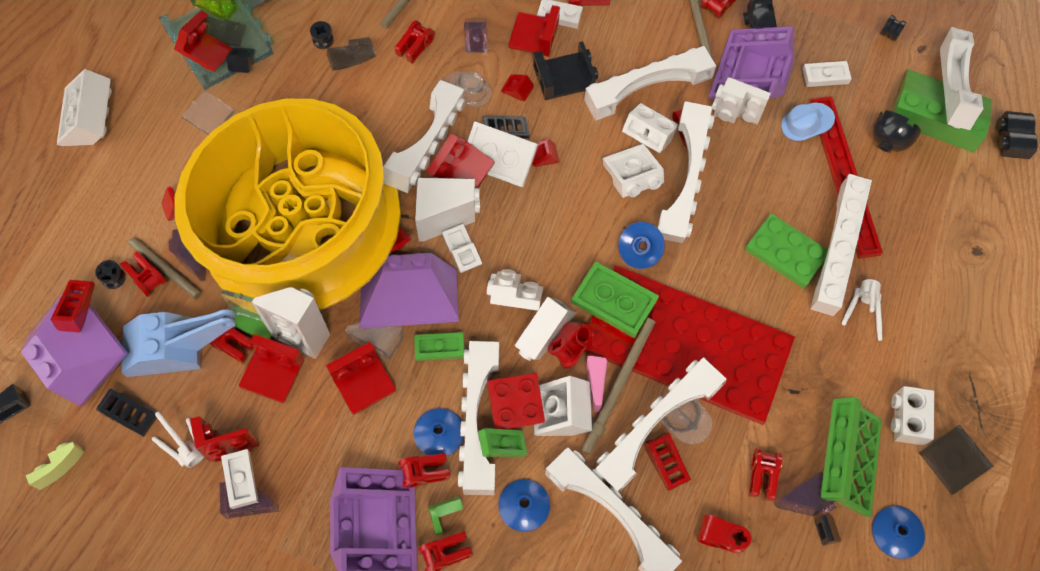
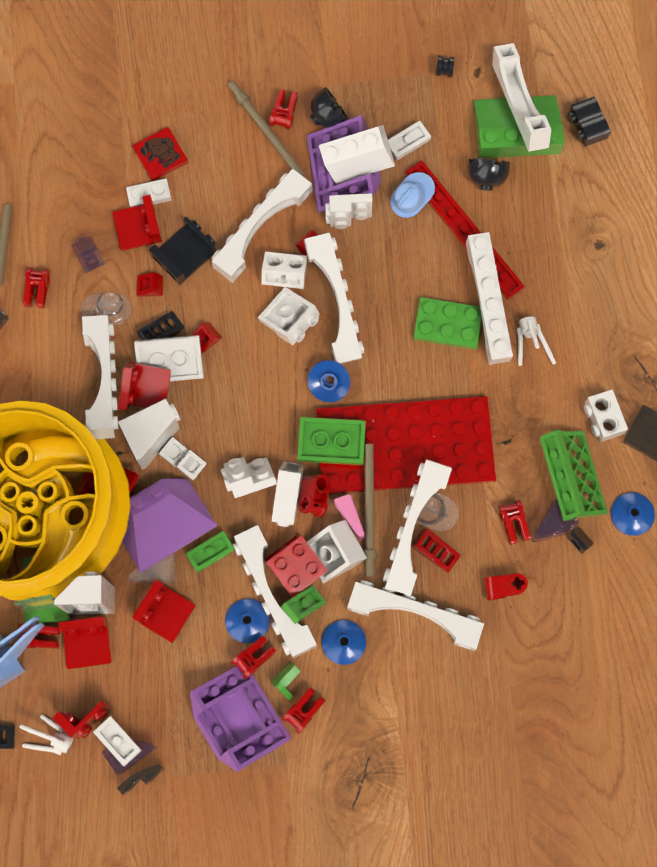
camera: 25 degrees left, 10 degrees up
(249, 531) = (146, 775): none -> clear smoke slope
(773, 56) = (357, 154): none -> white slope

